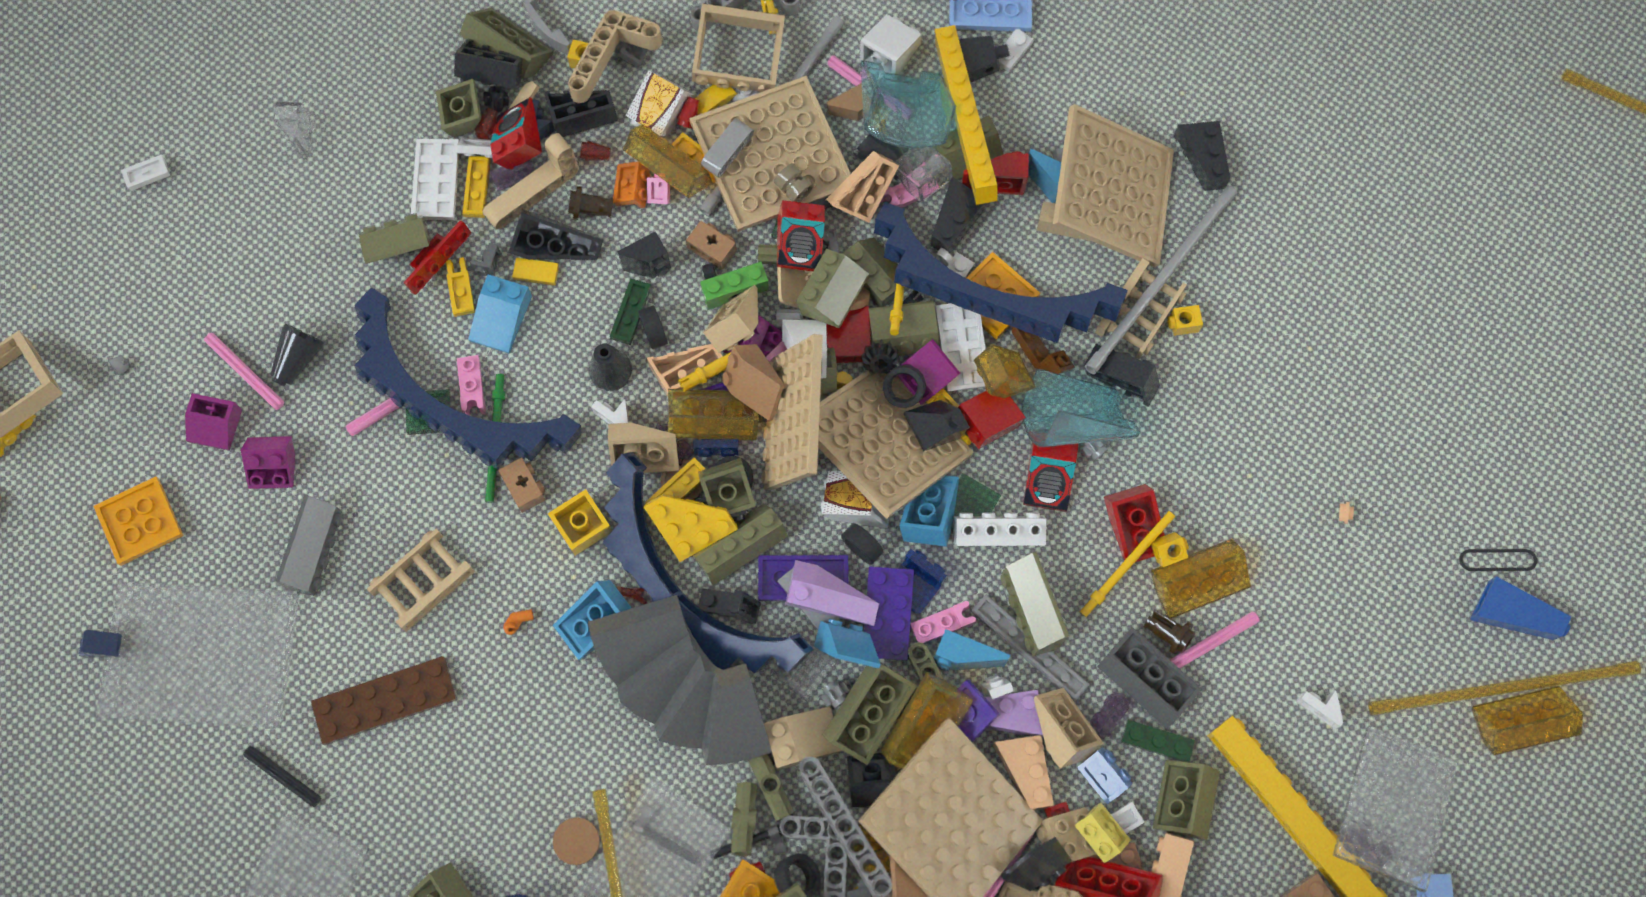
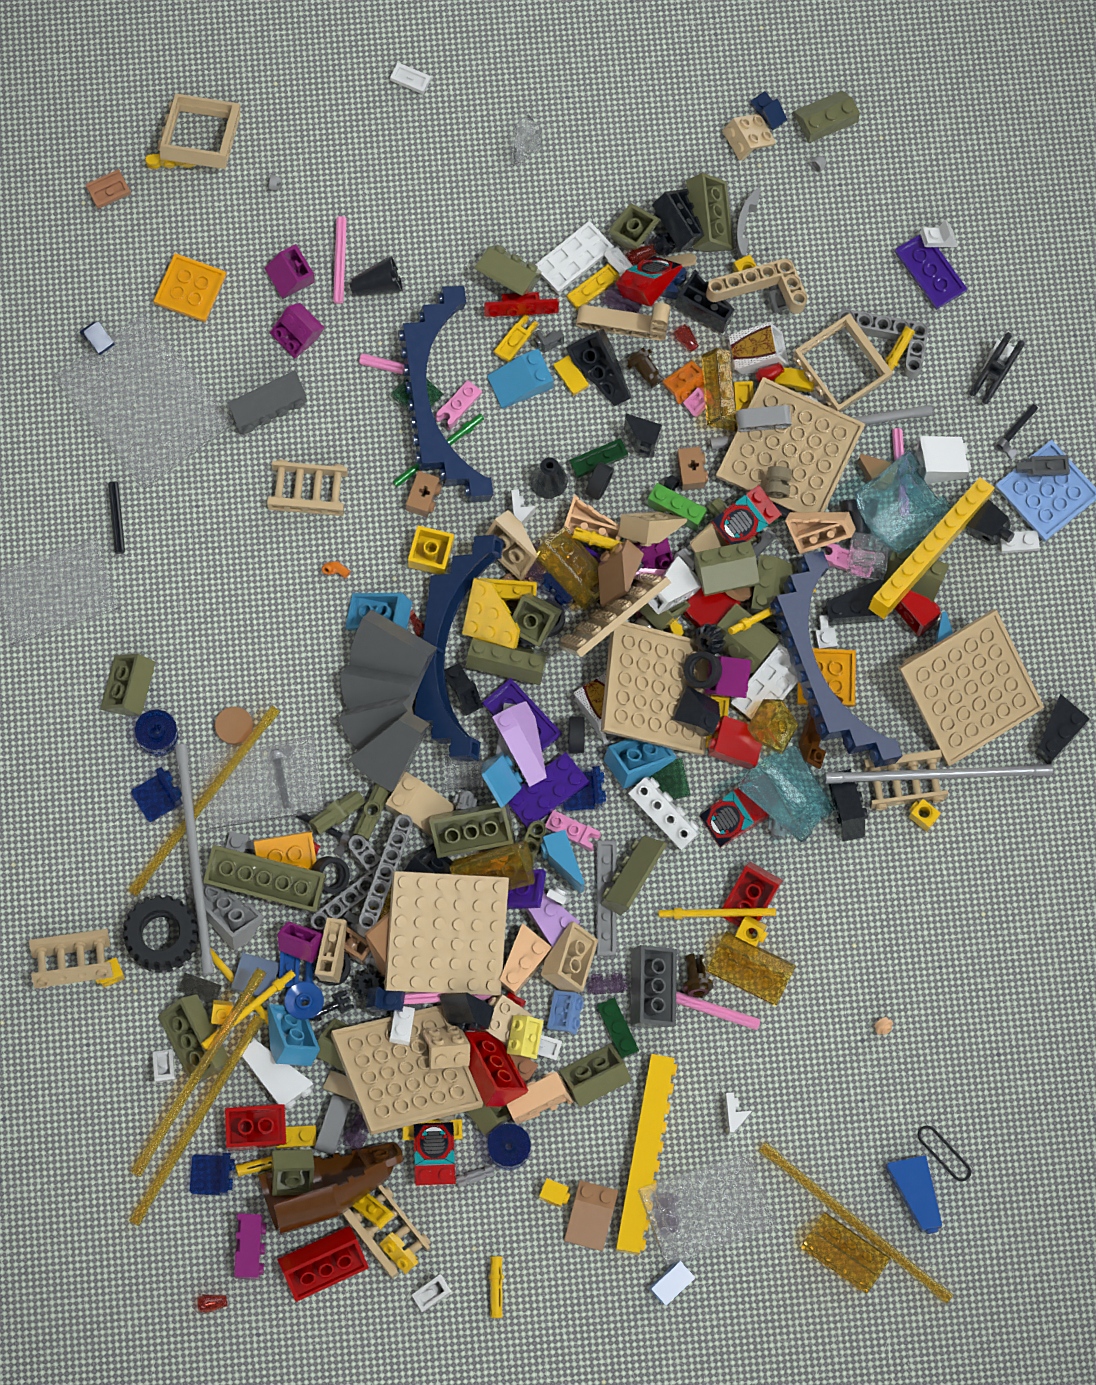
camera: 45 degrees right, 0 degrees up
(383, 700) = (215, 535): reddish brown plate -> none

